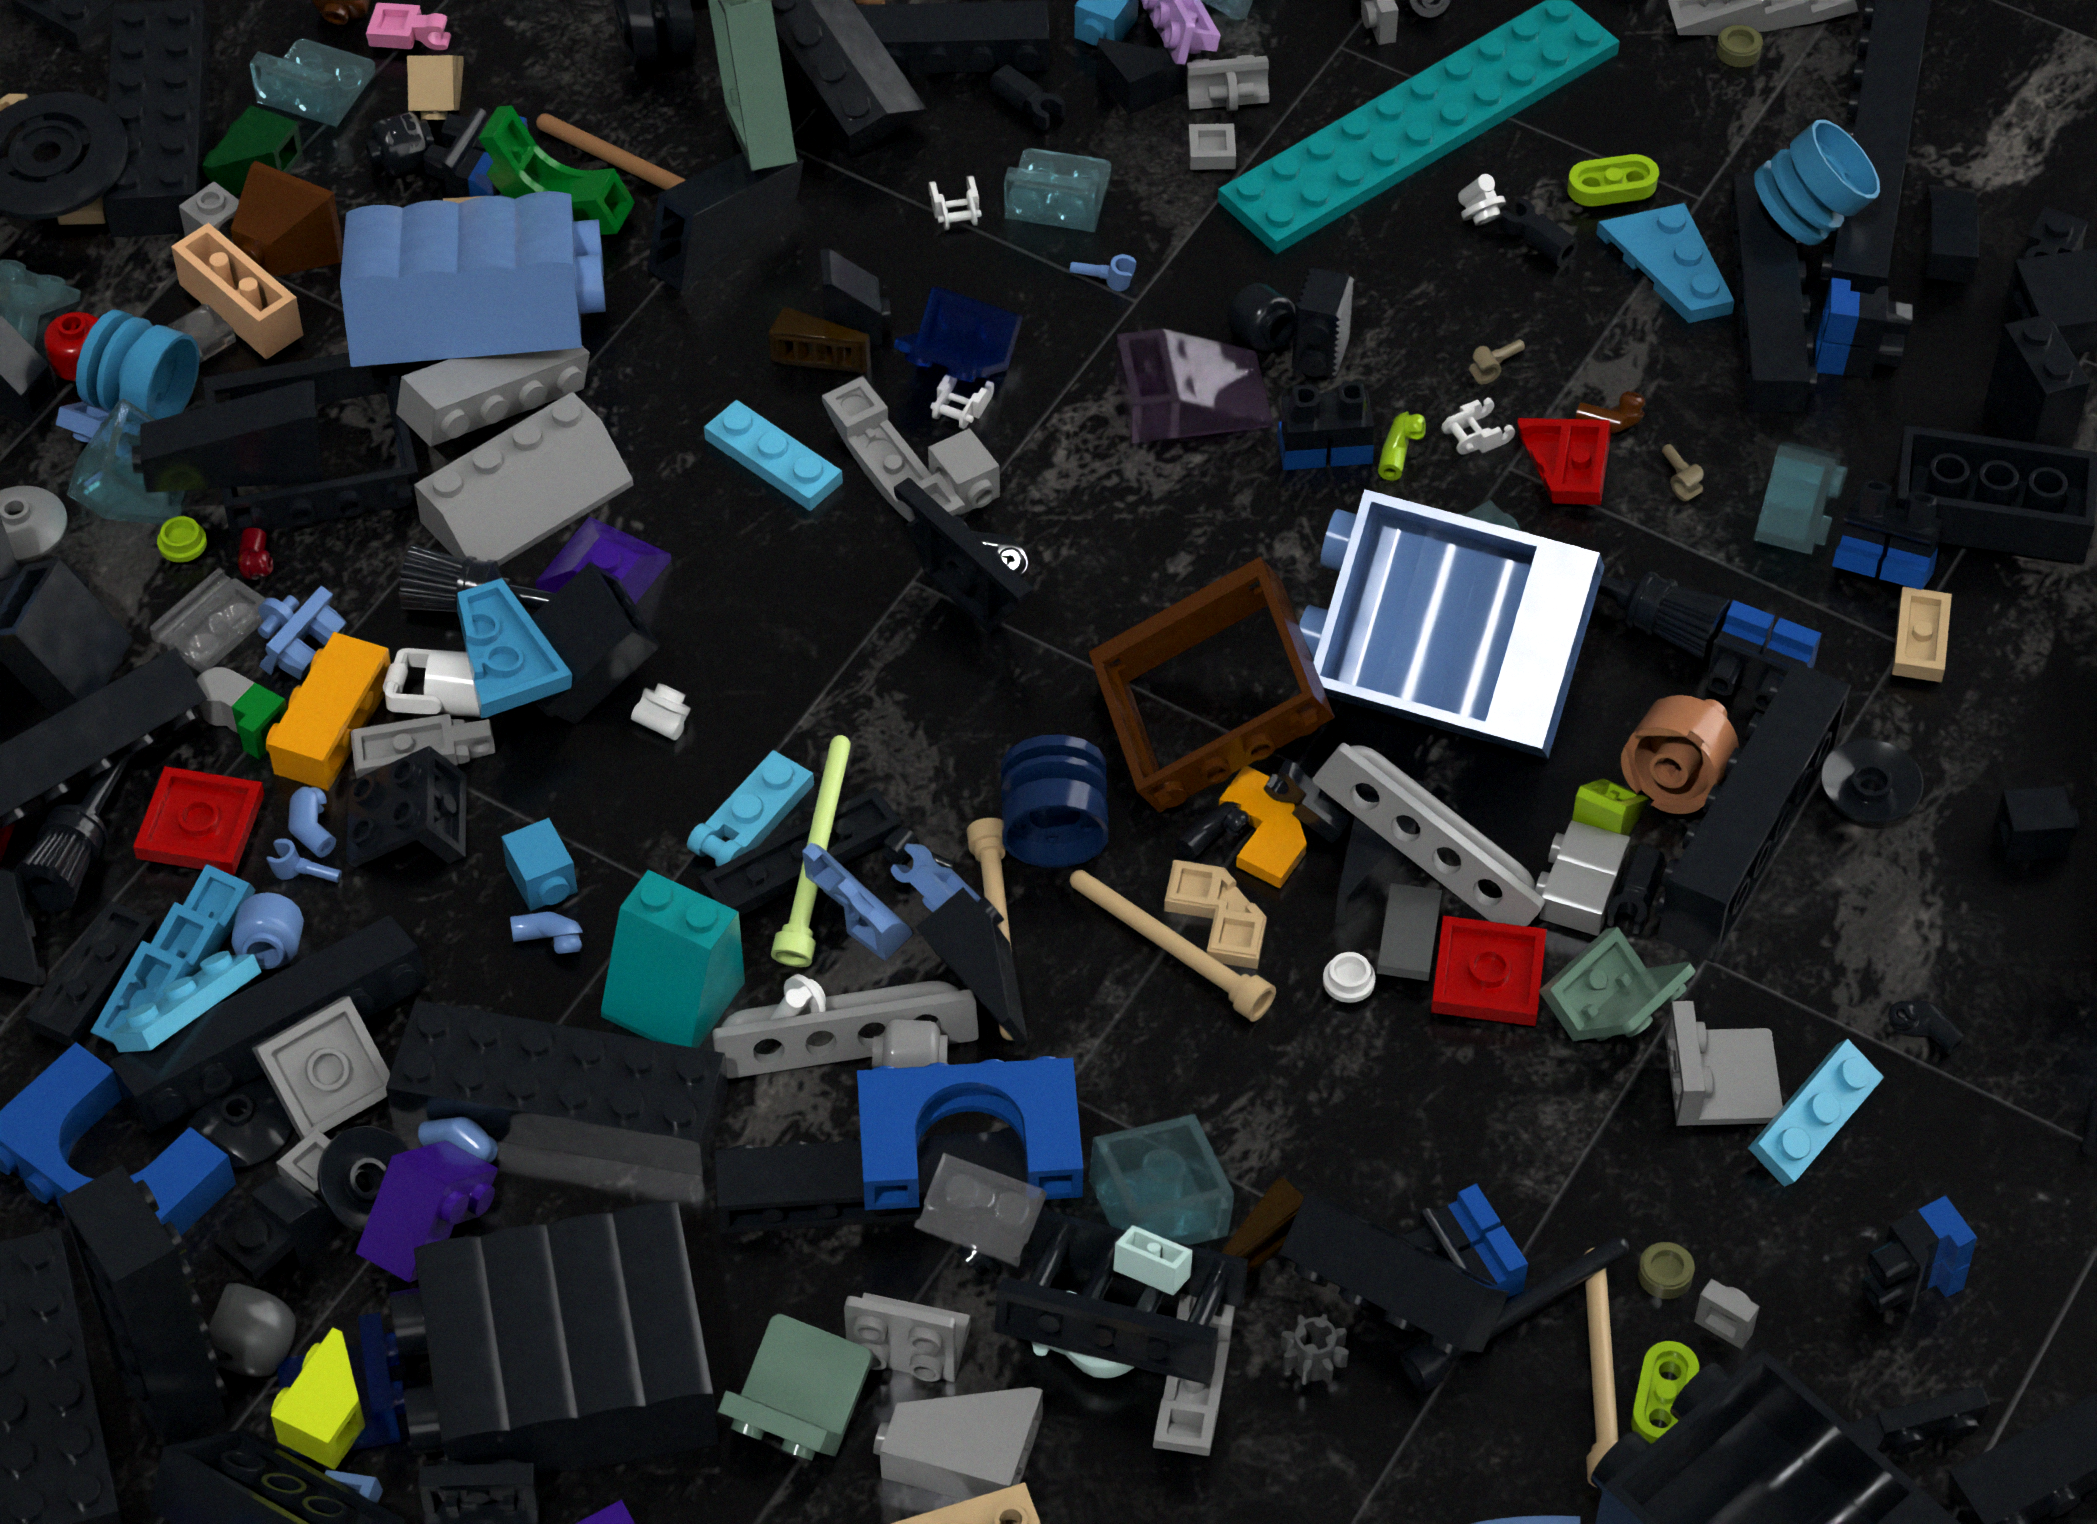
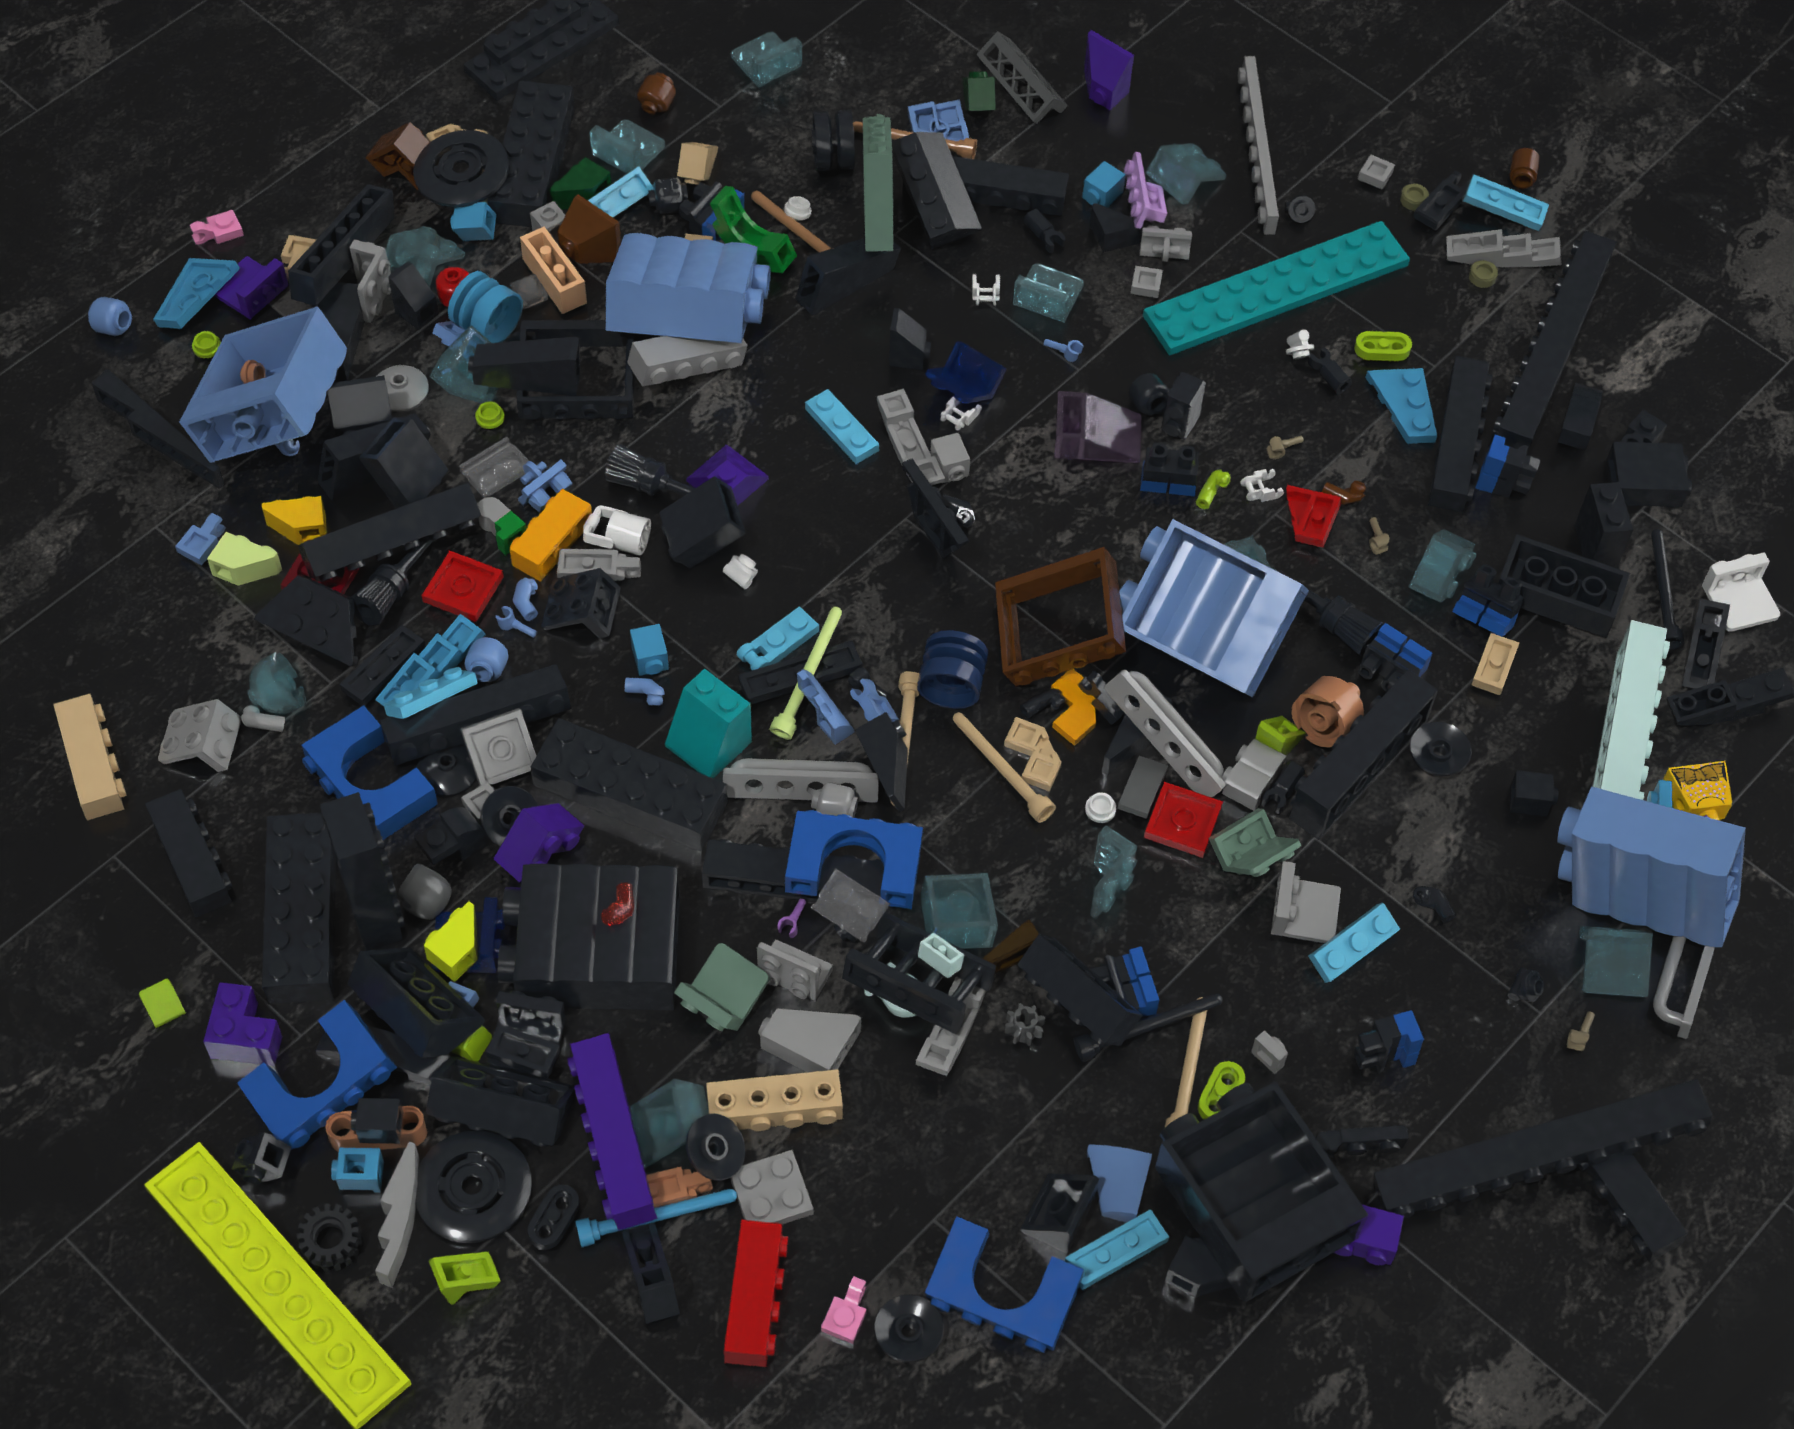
camera: 10 degrees right, 5 degrees up
(86, 238) = (474, 222): none -> dark azure brick
(252, 556) = (527, 434): dark red arm -> none
(327, 149) = (622, 193): none -> medium azure plate
(403, 24) = (686, 120): bright pink plate -> none
(462, 1133) = (569, 801): medium blue arm -> none
(506, 650) = (656, 519): dark azure wing -> none
(523, 483) = (692, 418): light grey slope -> none
(602, 1283) = (620, 909): none -> clear red arm
(619, 128) = (798, 208): none -> white plate
(800, 998) = (779, 759): white plate -> none
(817, 343) = (882, 362): dark brown slope -> none
(884, 1254) = (792, 919): none -> medium lavender hand
(1397, 1054) = (1116, 861): none -> clear light blue bracket
(1666, 1270) = (1242, 1018): olive tile -> none
(1817, 182) = (1501, 372): dark azure wheel -> none

